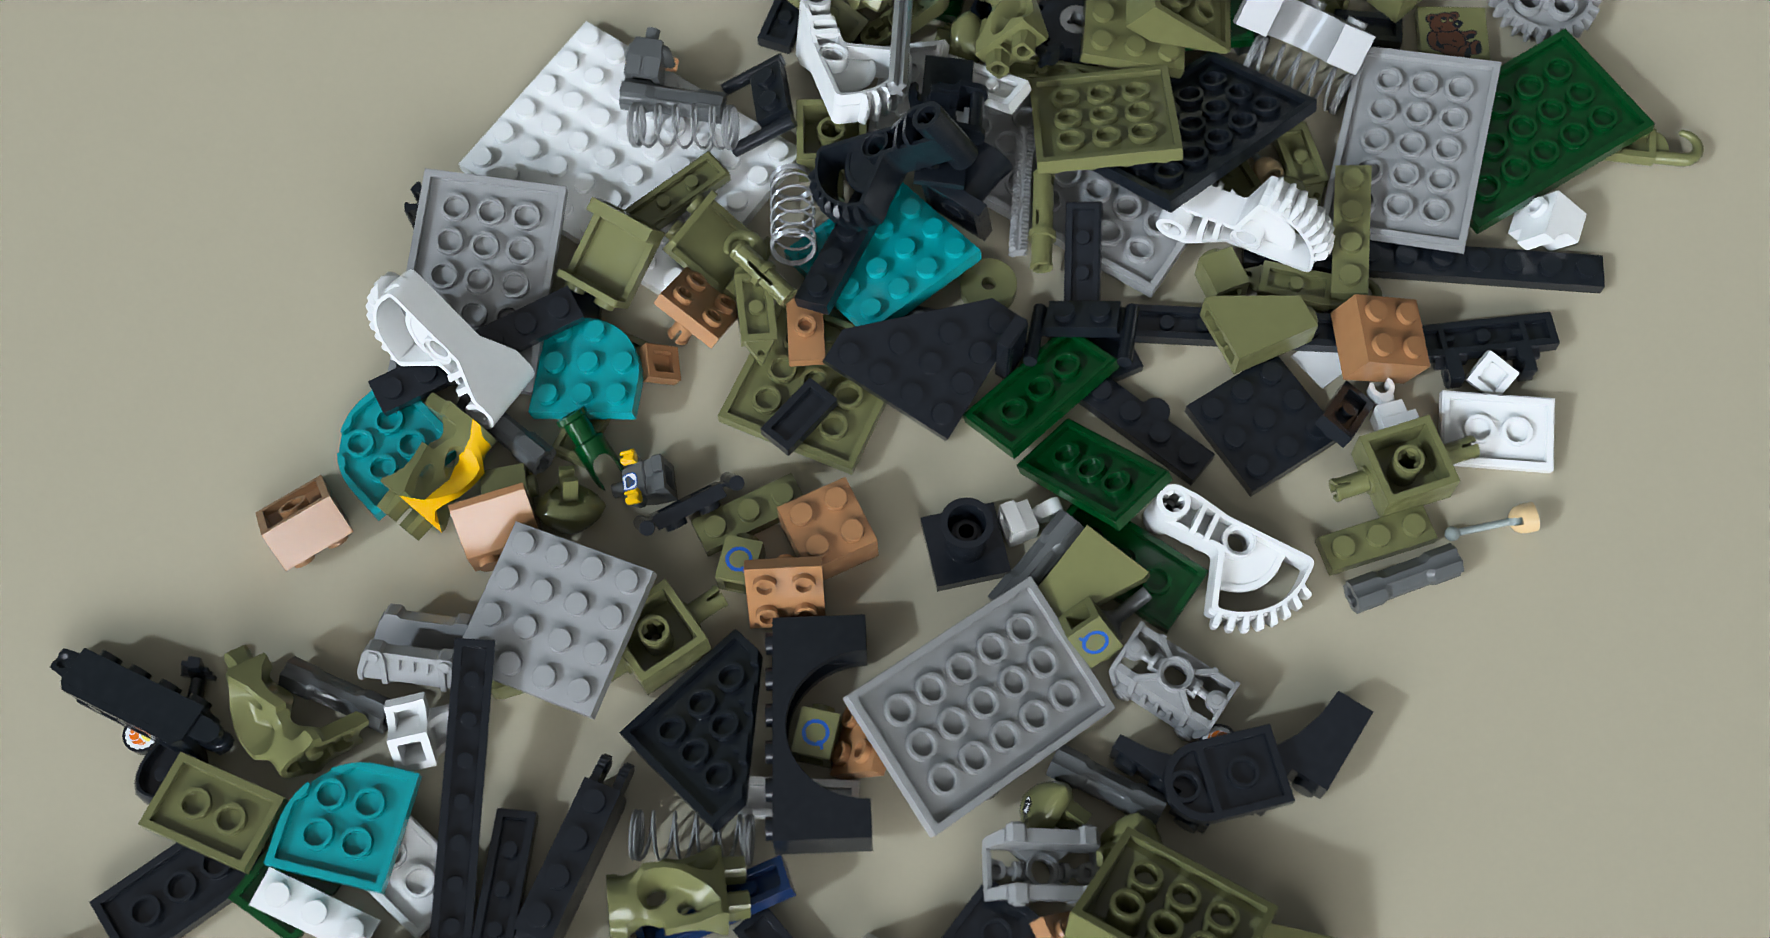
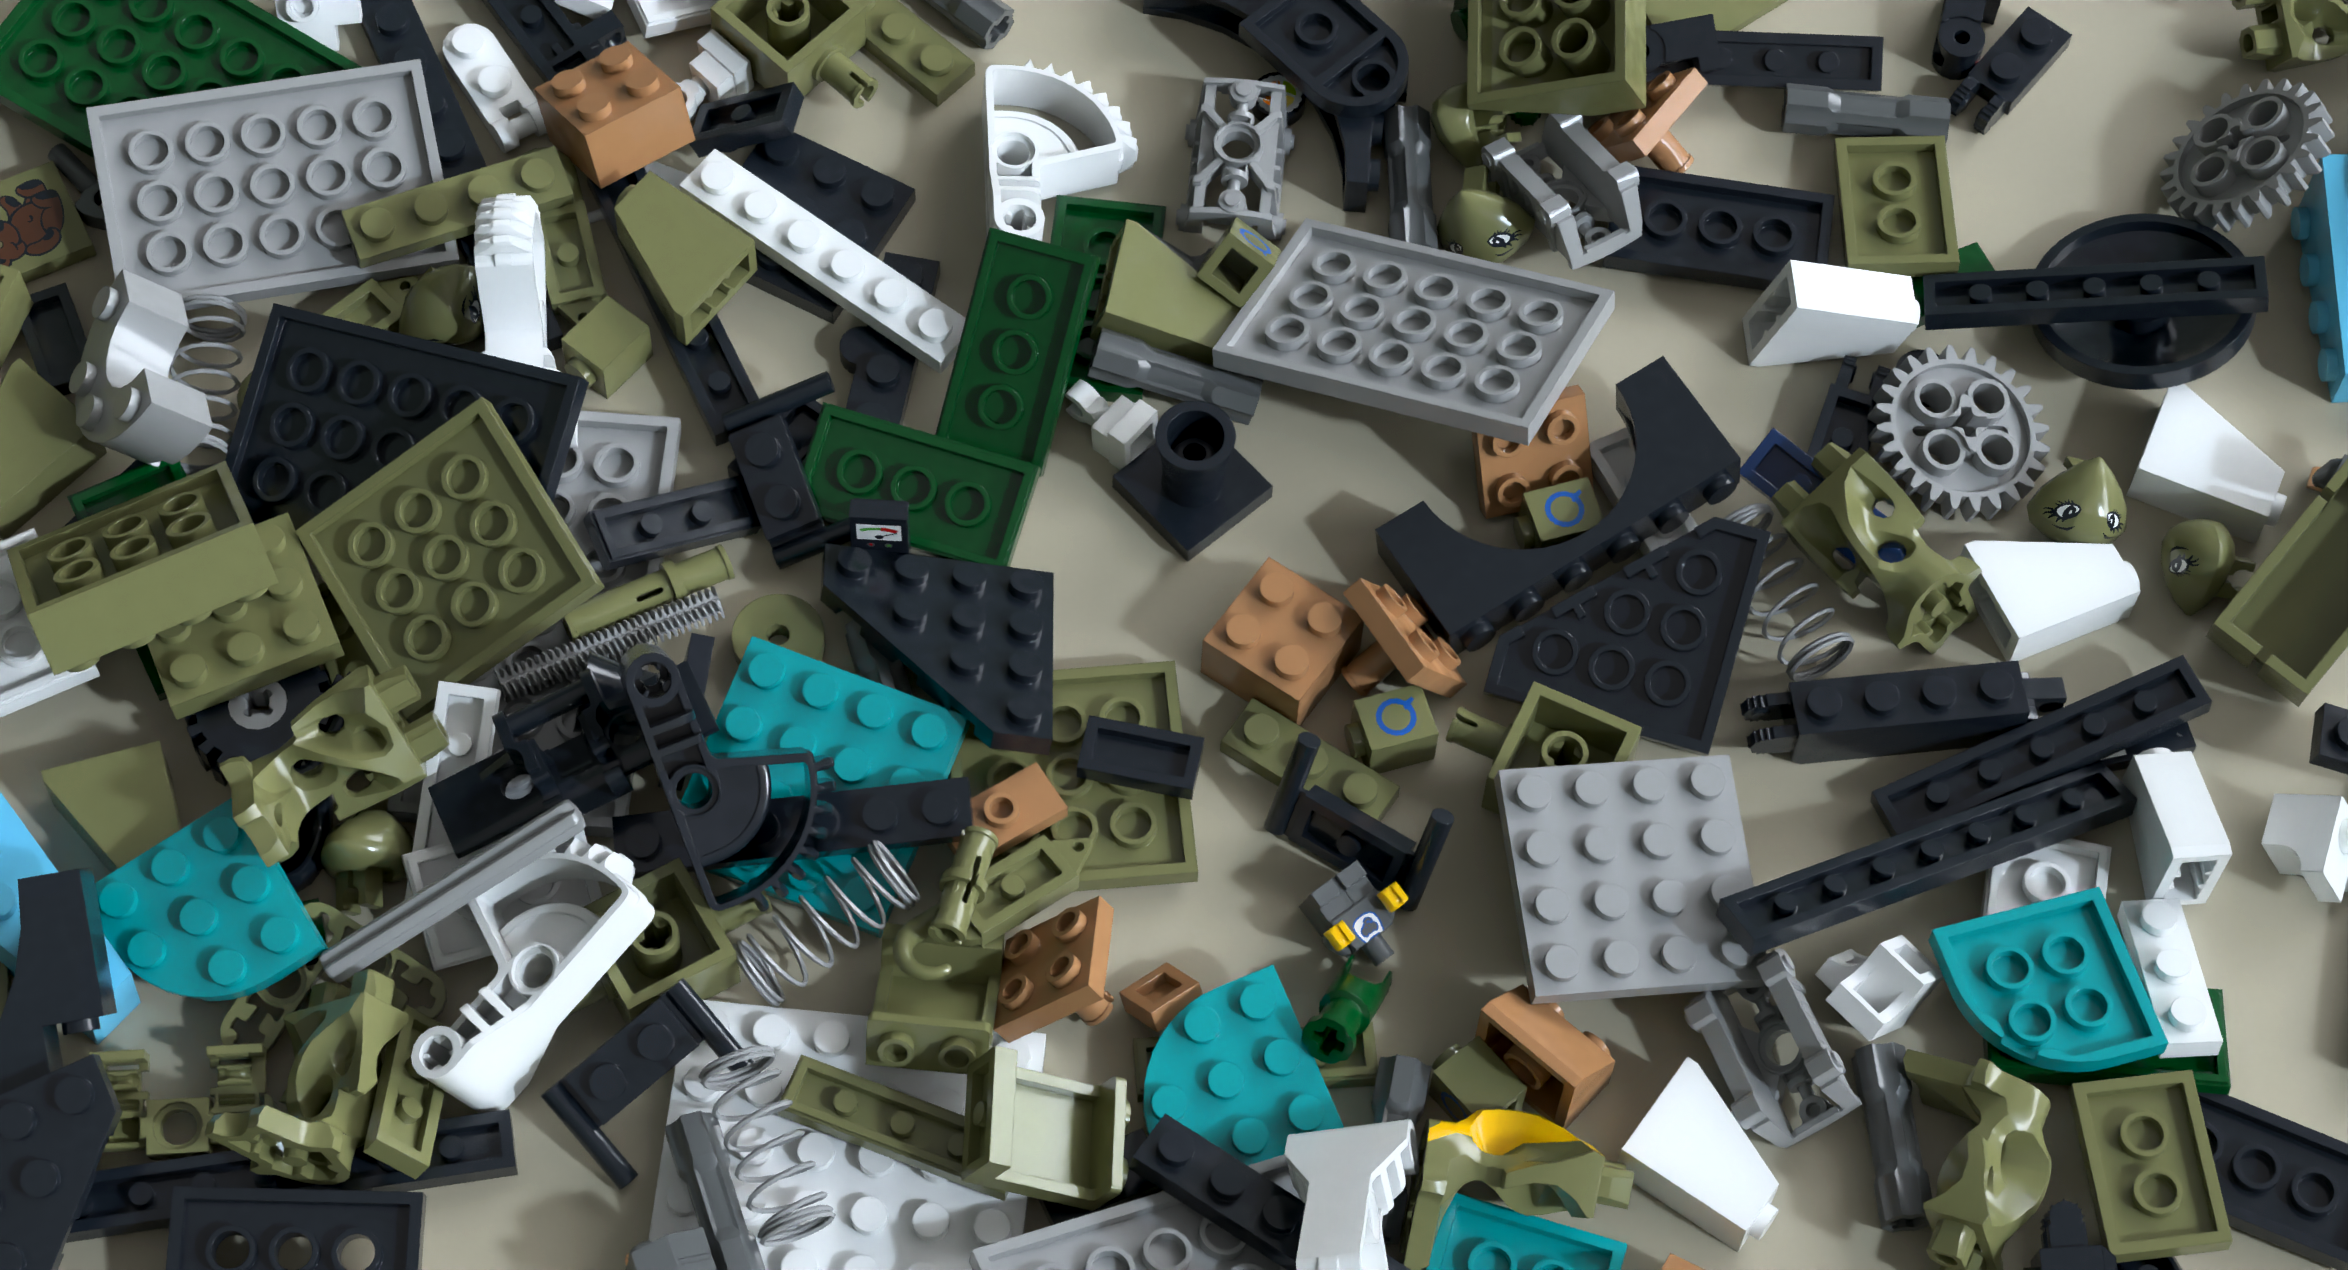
camera: 125 degrees left, 5 degrees down
(393, 575) = (1702, 1161): none -> white slope
(568, 505) = (1446, 988): olive piece -> none
(1222, 407) = (828, 260): none -> white plate
(1448, 300) = (492, 85): none -> white plate

